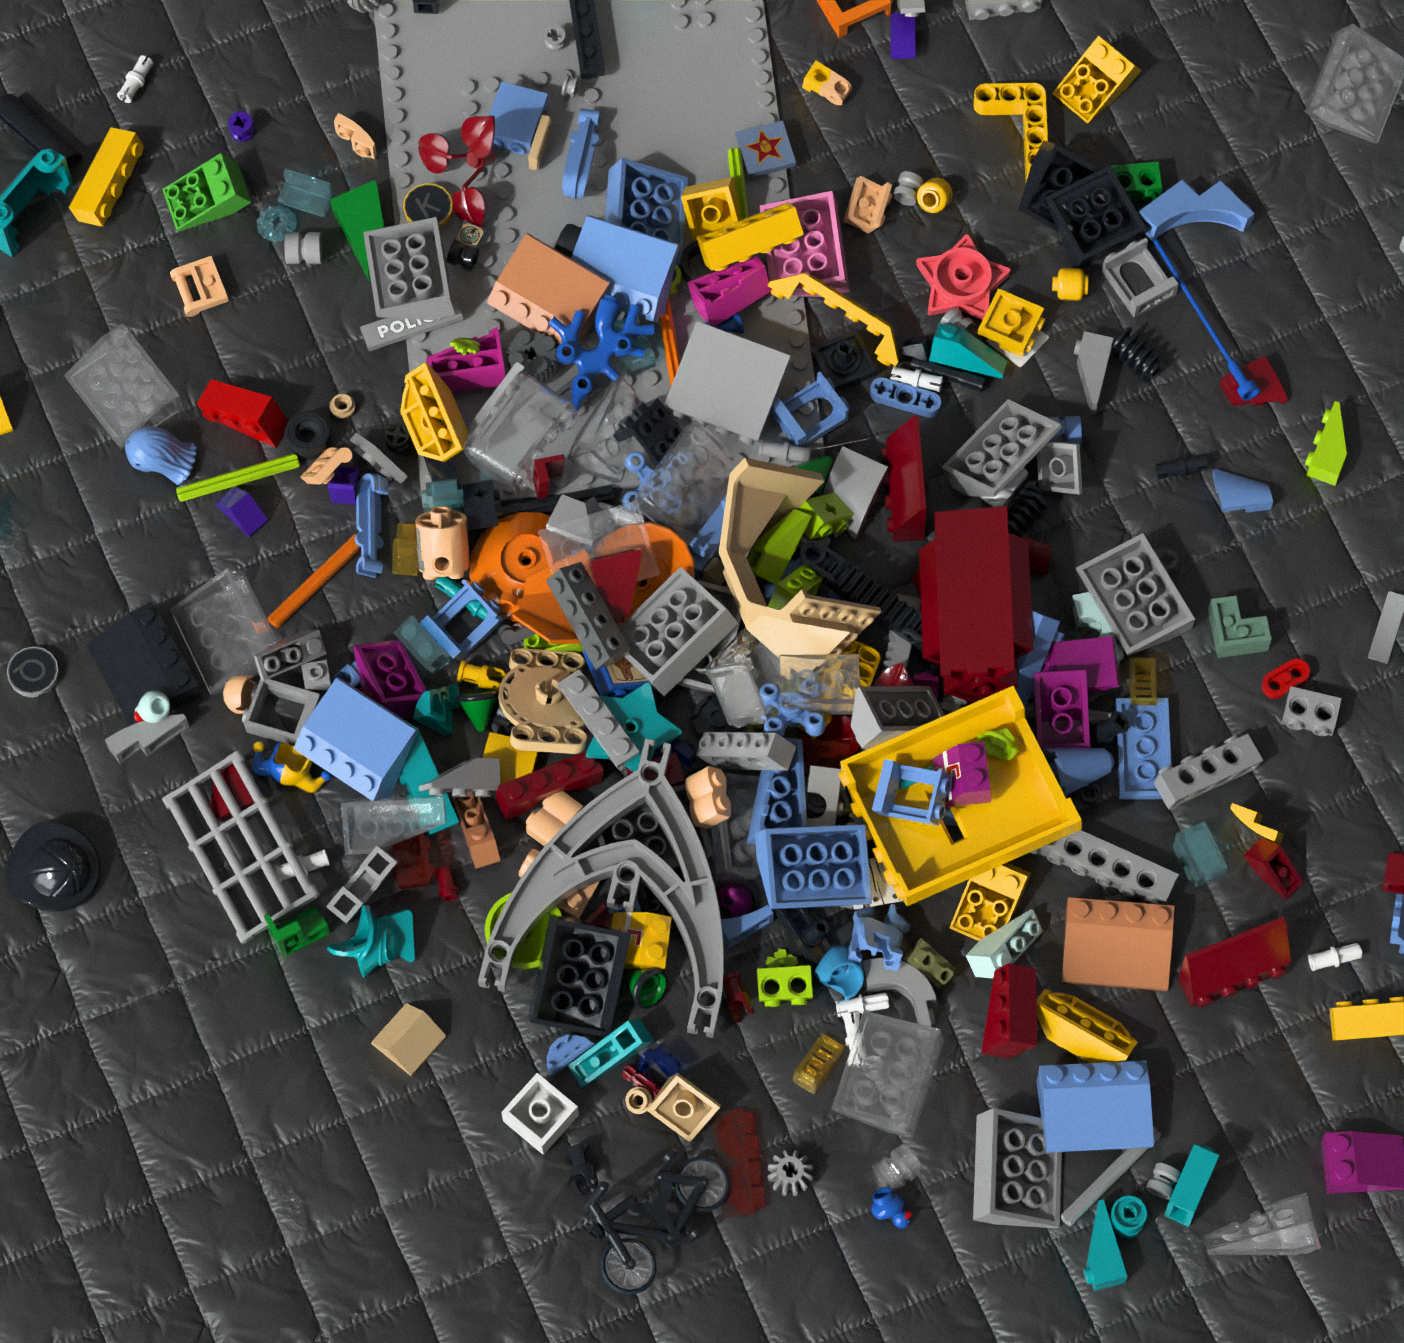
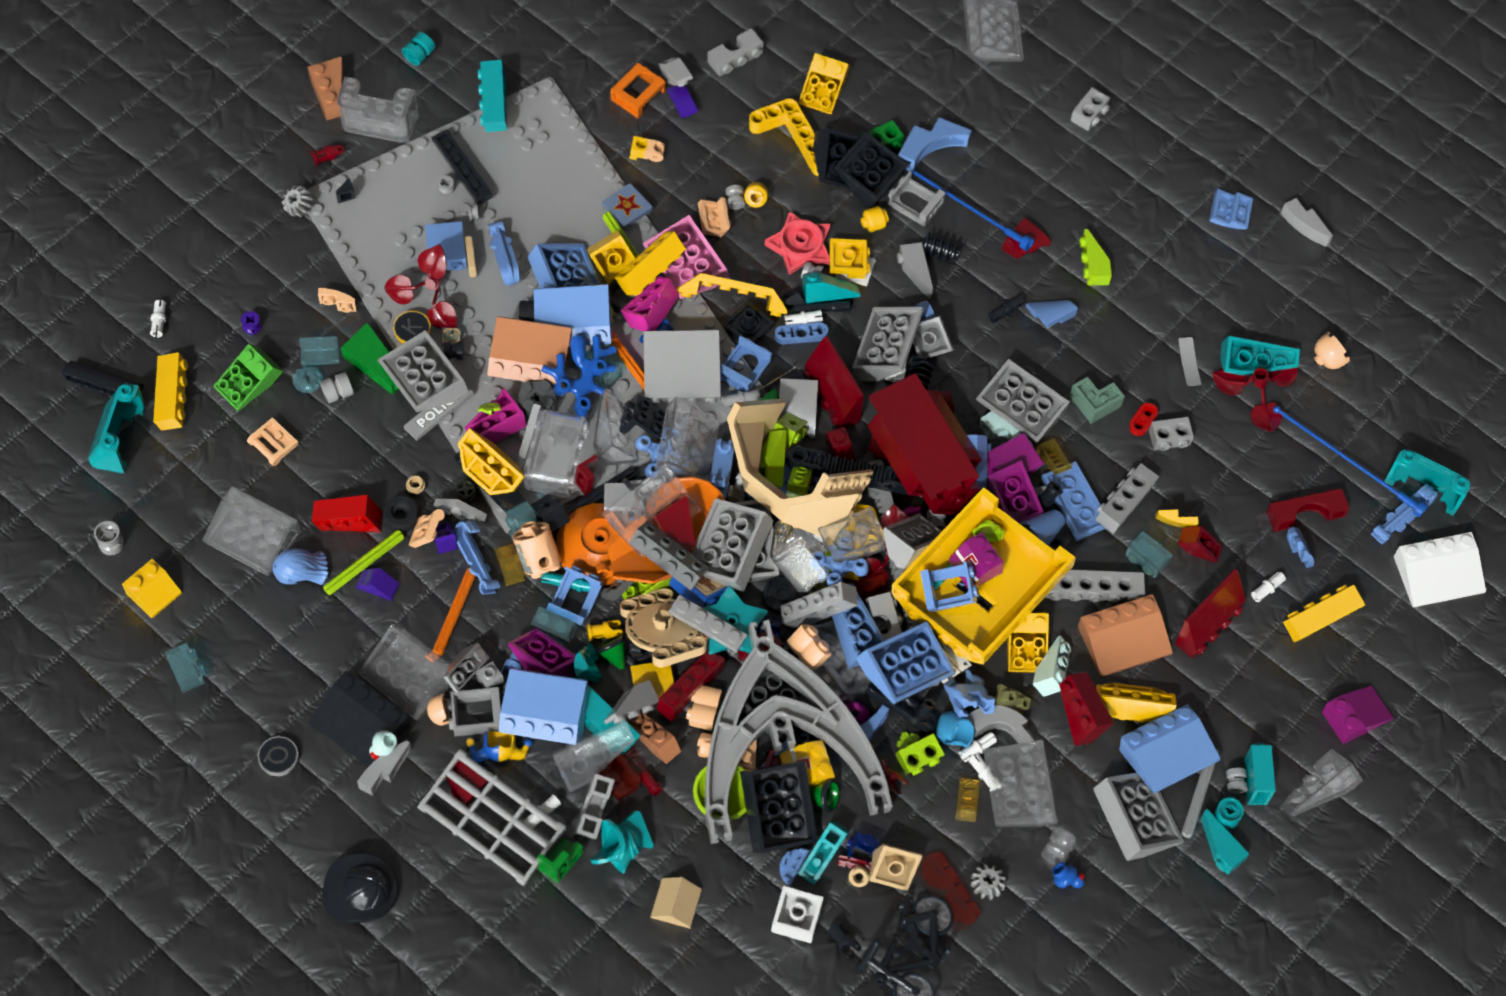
camera: 30 degrees left, 5 degrees down
(880, 561) = (839, 443): none -> dark red slope

